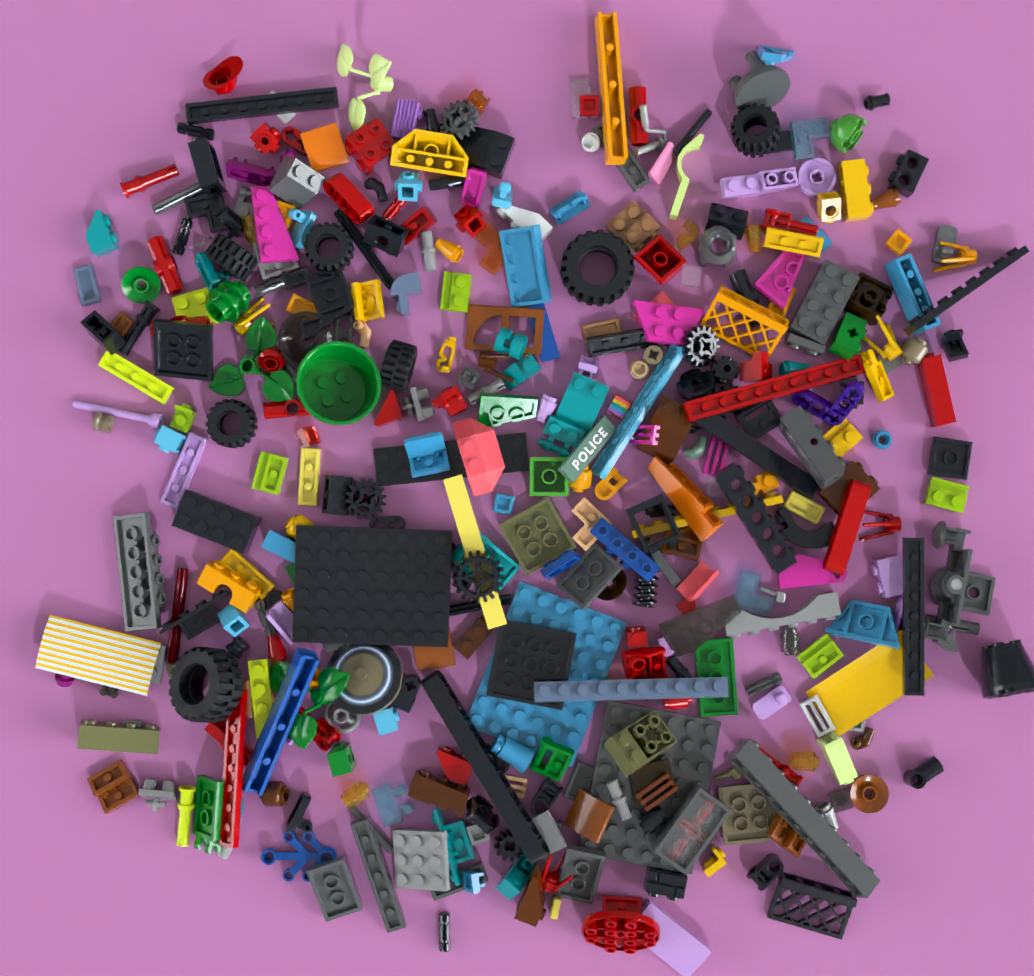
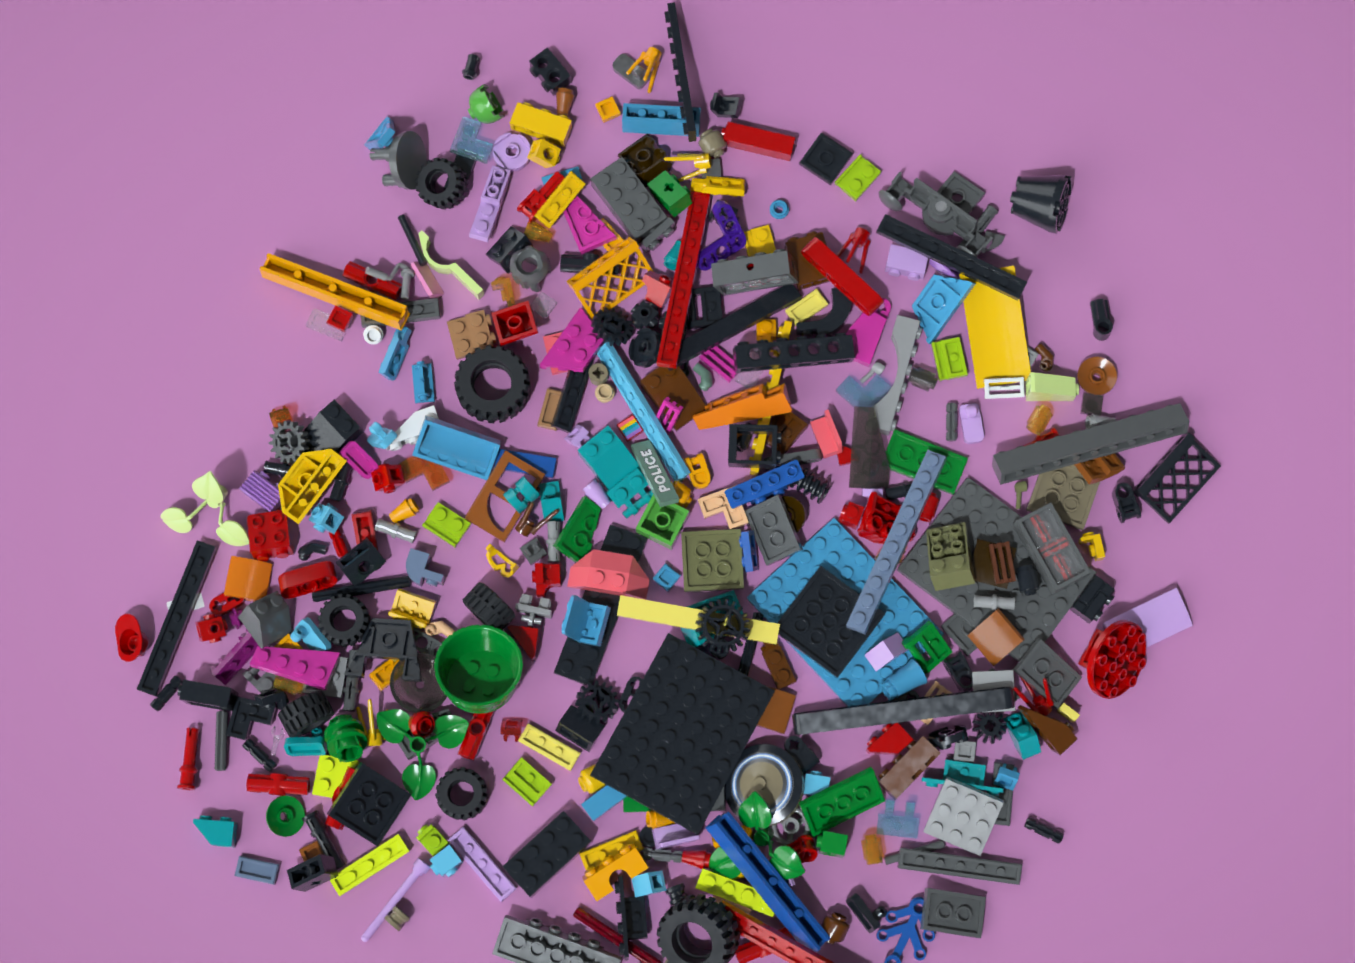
camera: 65 degrees left, 10 degrees down
(382, 749) = (842, 801): none -> green tile
(529, 726) = (886, 652): none -> lavender slope
(582, 170) = (395, 354): none -> dark azure hinge

